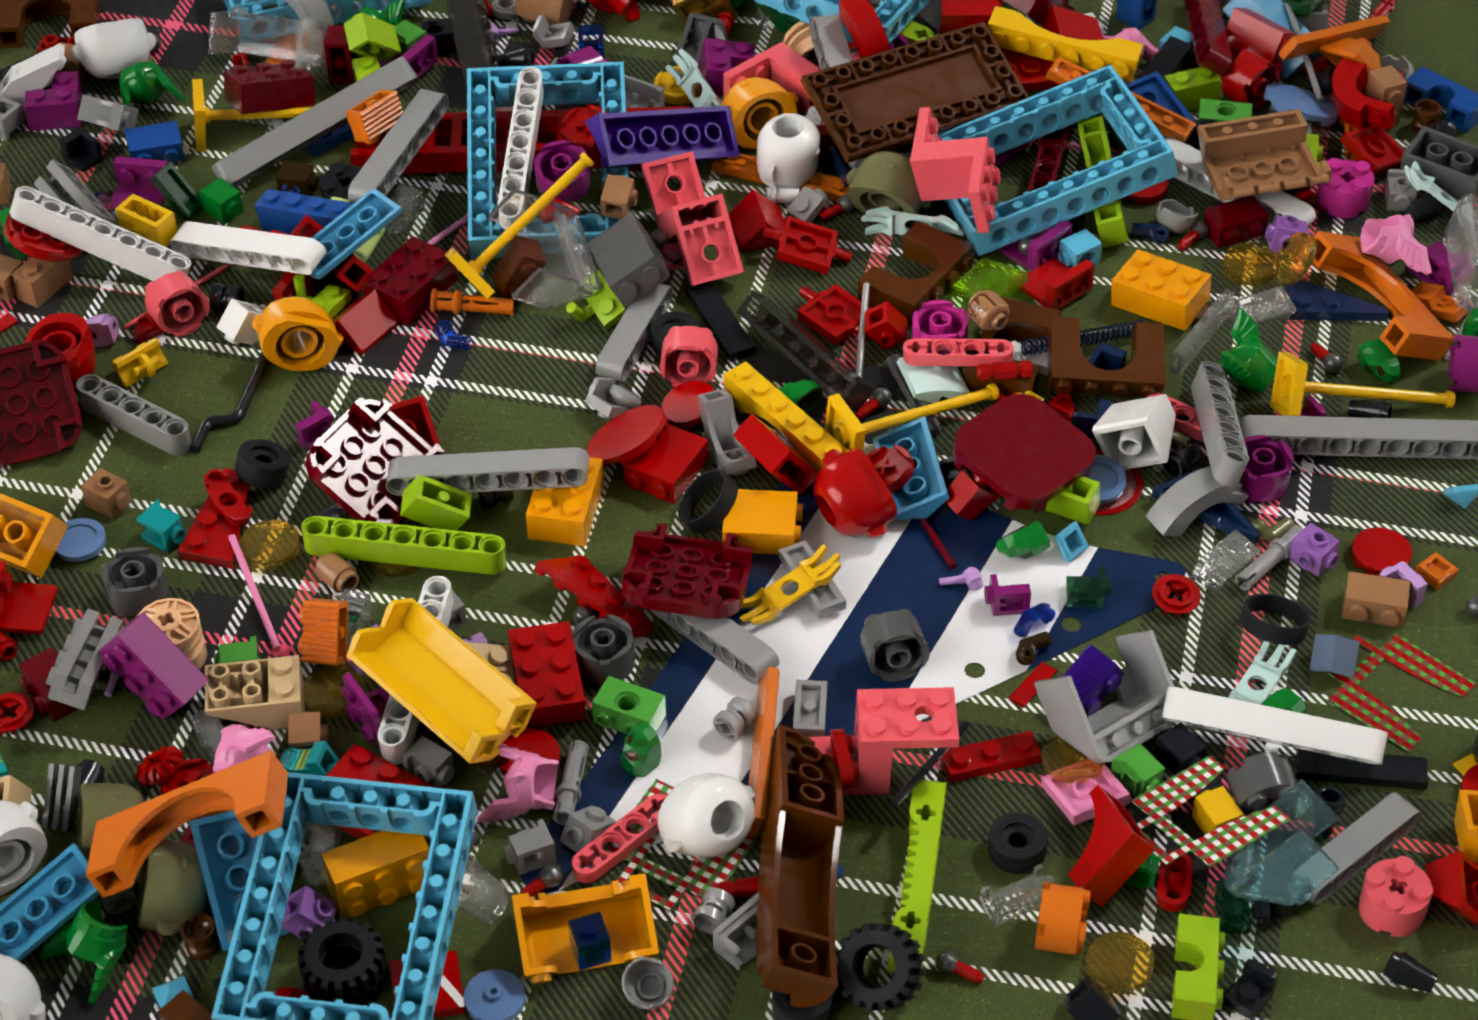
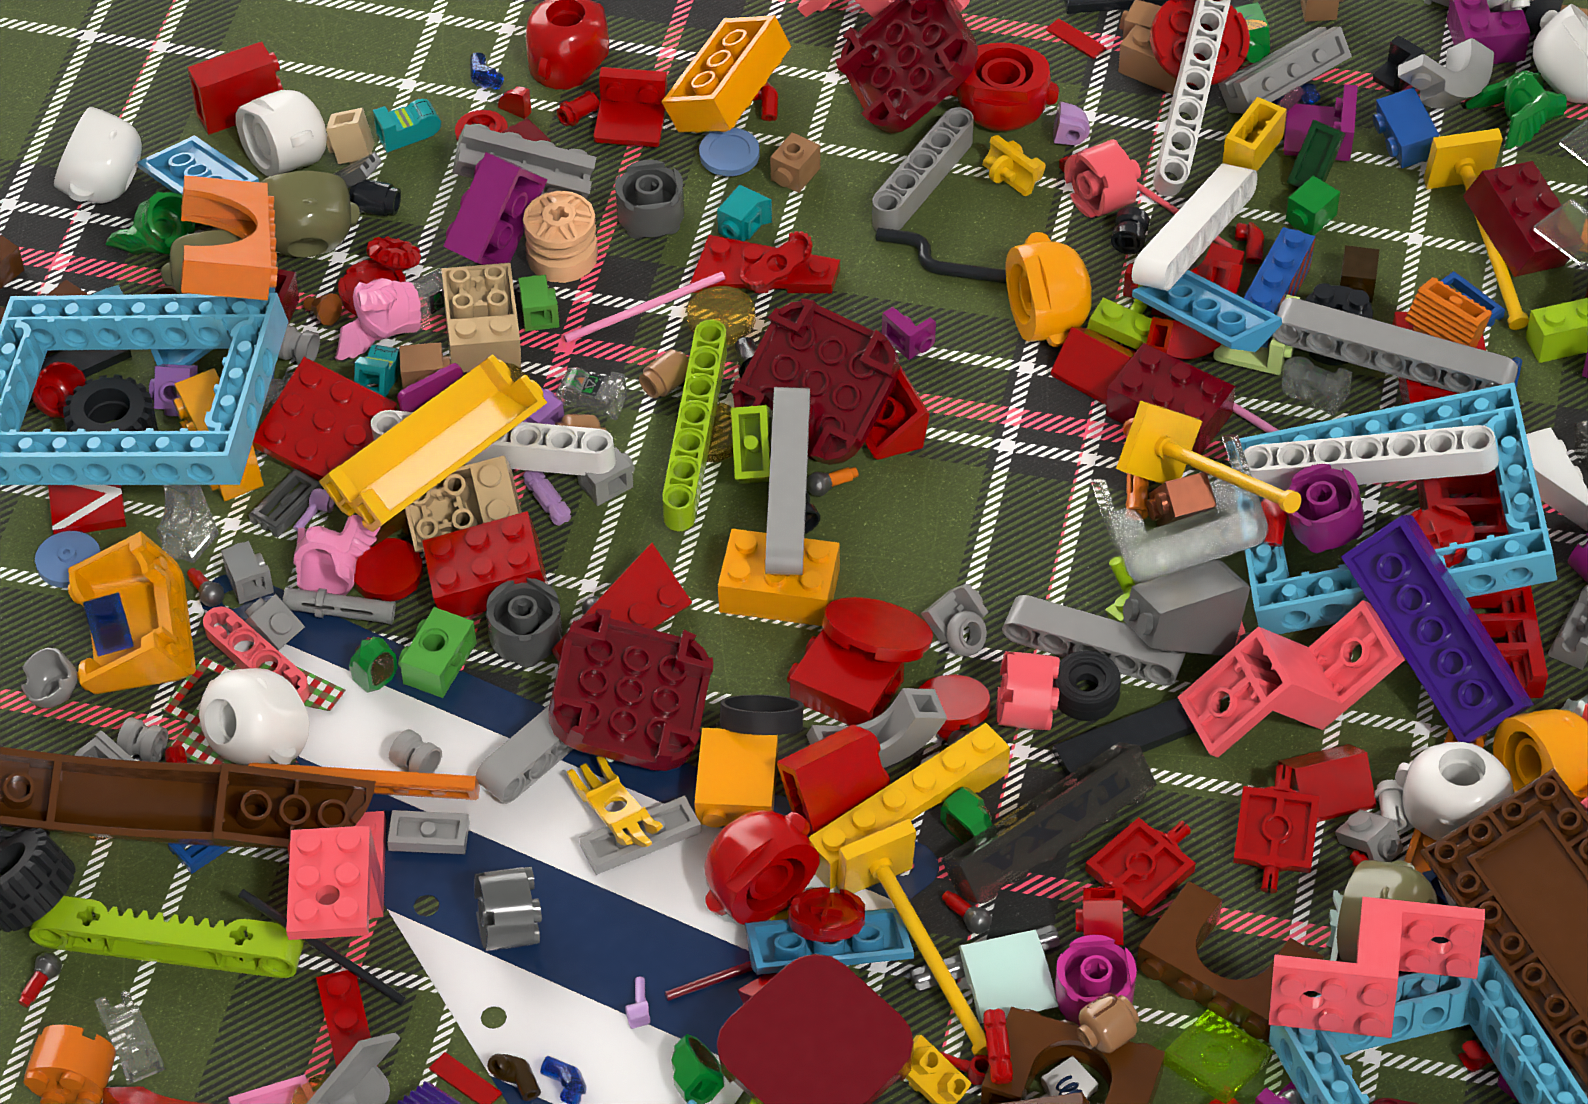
camera: 90 degrees right, 5 degrees up
(237, 322) = (1095, 252): white slope -> none
(262, 463) = (848, 273): black tyre -> none
(310, 125) = (1455, 269): light grey beam -> none
(323, 631) = (558, 357): orange brick -> none
(449, 338) = (1076, 451): clear blue arm -> none
(618, 196) = (1298, 579): medium nougat brick -> none
(861, 339) = (1078, 891): light grey axle -> none
(958, 351) = (1033, 991): coral beam -> none
(1008, 598) = (596, 1036): magenta bracket -> none
(1017, 826) = (201, 1022): black tyre -> none

